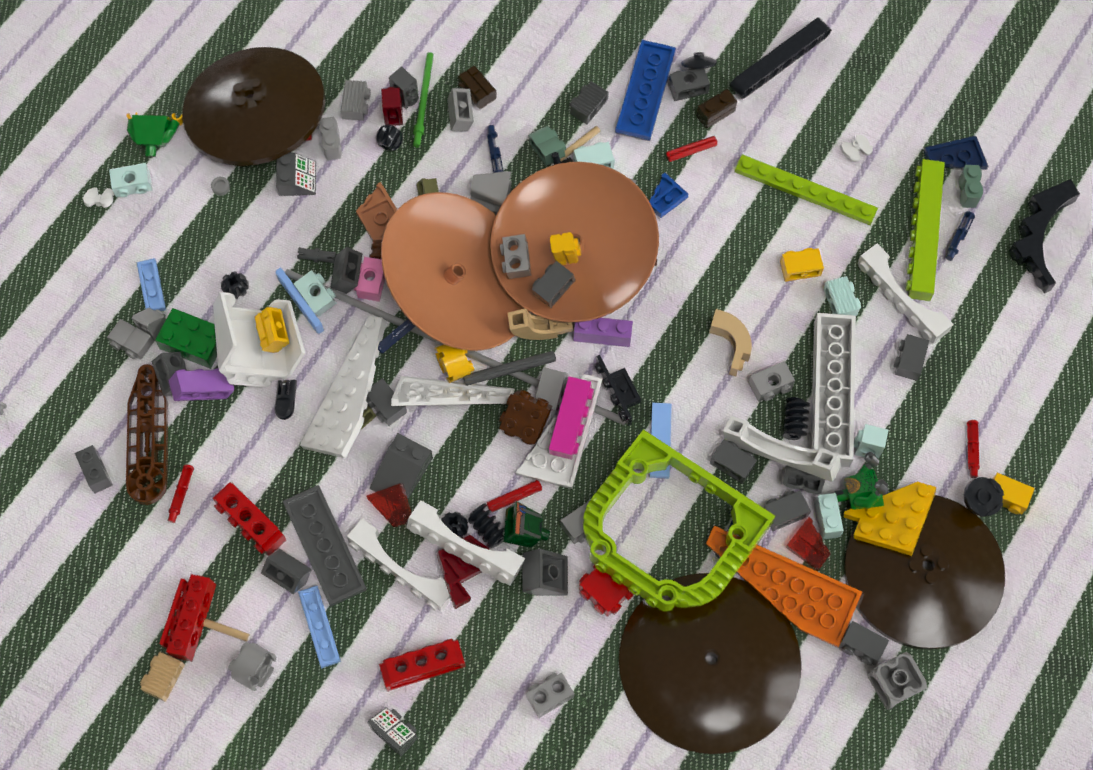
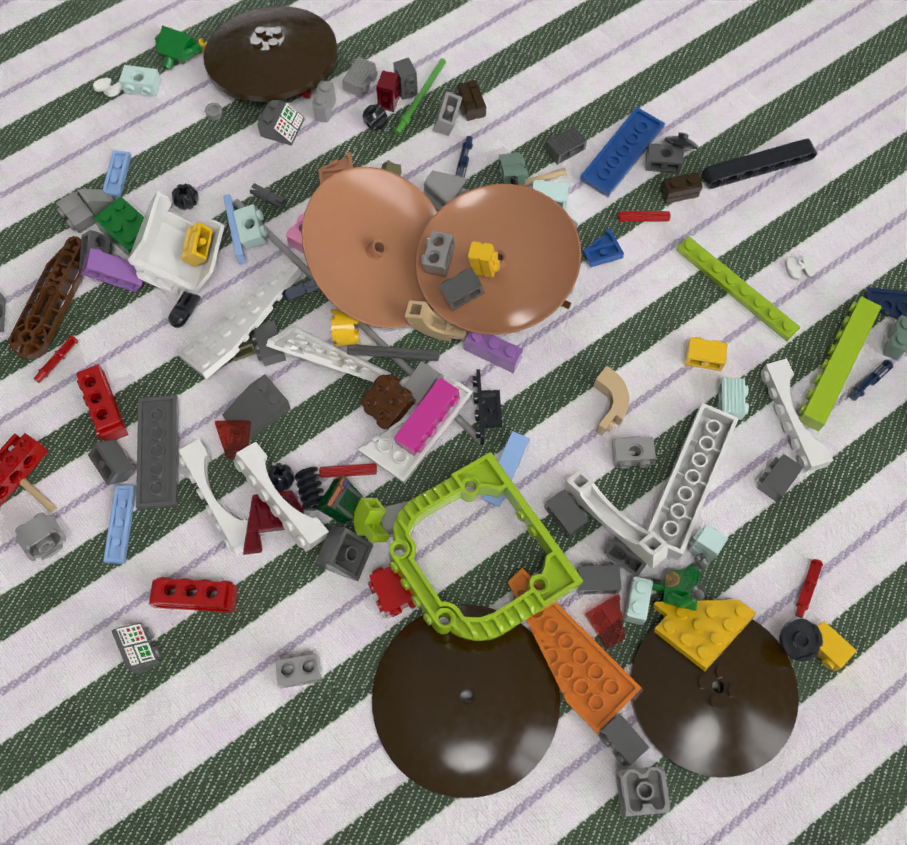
camera: 20 degrees right, 0 degrees up
(346, 270) = (285, 216): dark grey brick -> none
(555, 533) = (368, 520): none -> lime brick
(794, 418) = (642, 494): black piece -> none

